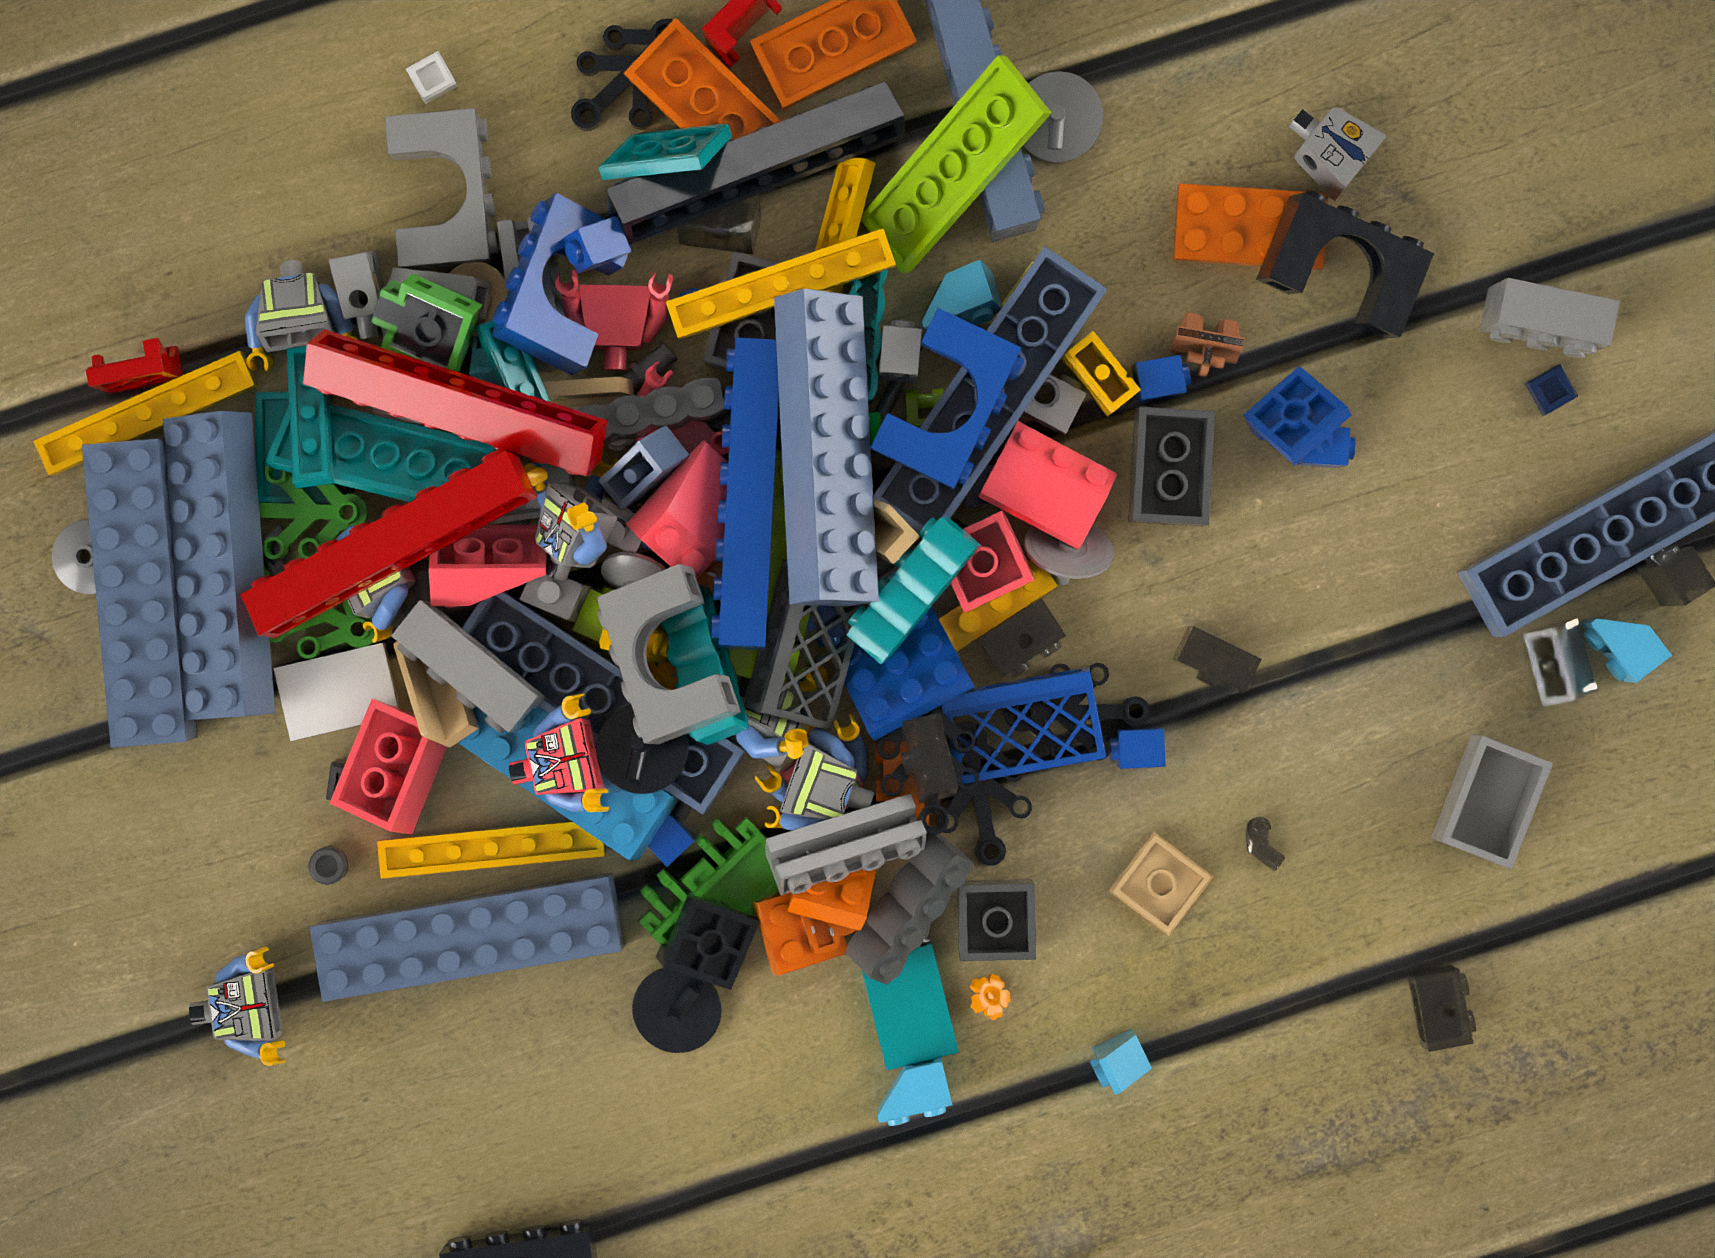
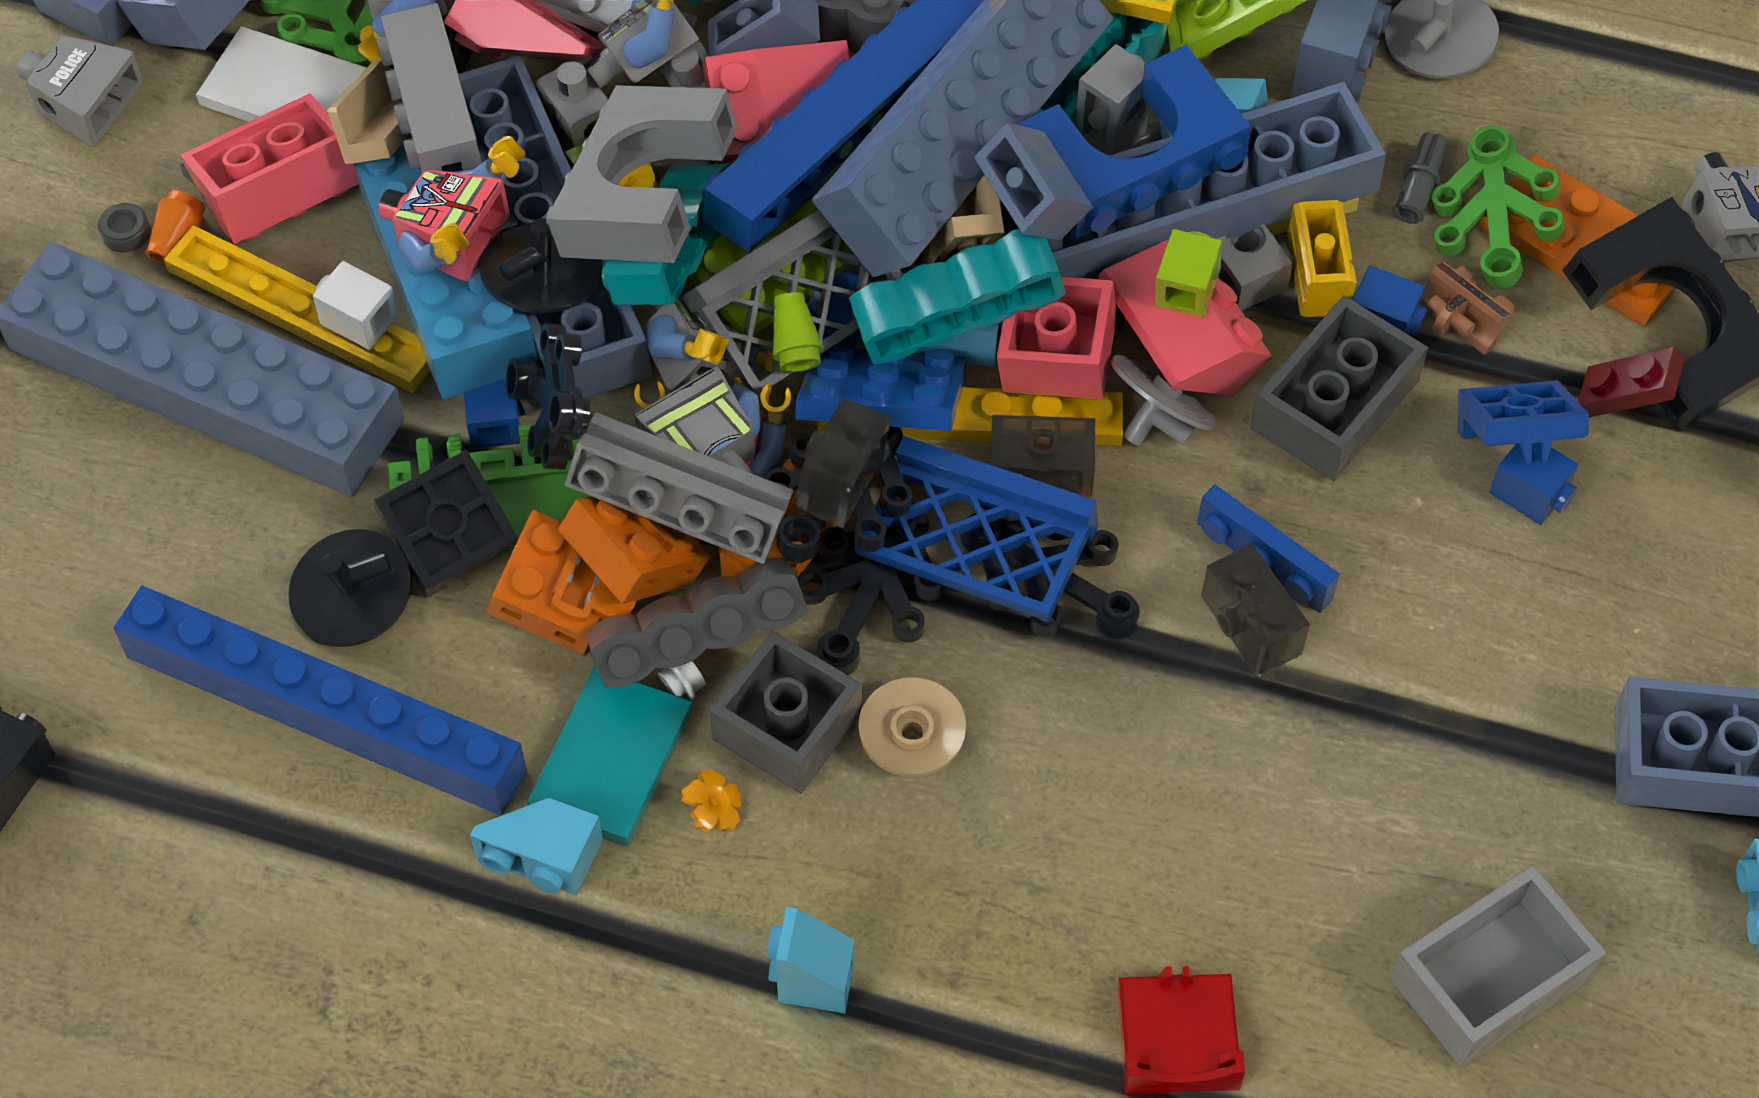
camera: 30 degrees right, 30 degrees down
(210, 789) = (81, 84): none -> light grey torso
(361, 843) = (172, 221): none -> orange cone
(533, 836) = (355, 305): none -> white brick
(684, 818) = (554, 387): none -> black plant
(721, 1096) = (322, 700): none -> blue brick
(832, 684) = (795, 335): none -> lime cone
(920, 498) = (1033, 182): none -> sand blue brick
(1042, 469) = (1188, 272): none -> lime brick
(1088, 881) = (917, 706): none -> tan dish
(1118, 253) = (1420, 178): none -> dark grey axle
(1138, 748) = (1094, 647): blue brick -> none
(1160, 883) = (1013, 817): tan tile -> none
(1179, 245) = (1495, 200): none -> bright green plant
(1195, 611) = (1297, 569): none -> blue plate
(1258, 843) = (1166, 845): clear smoke arm -> none
(1338, 951) = (1179, 1033): none -> red piece
(1346, 339) = (1631, 382): none -> dark red plate
(1560, 662) = (1687, 866): clear smoke brick -> none

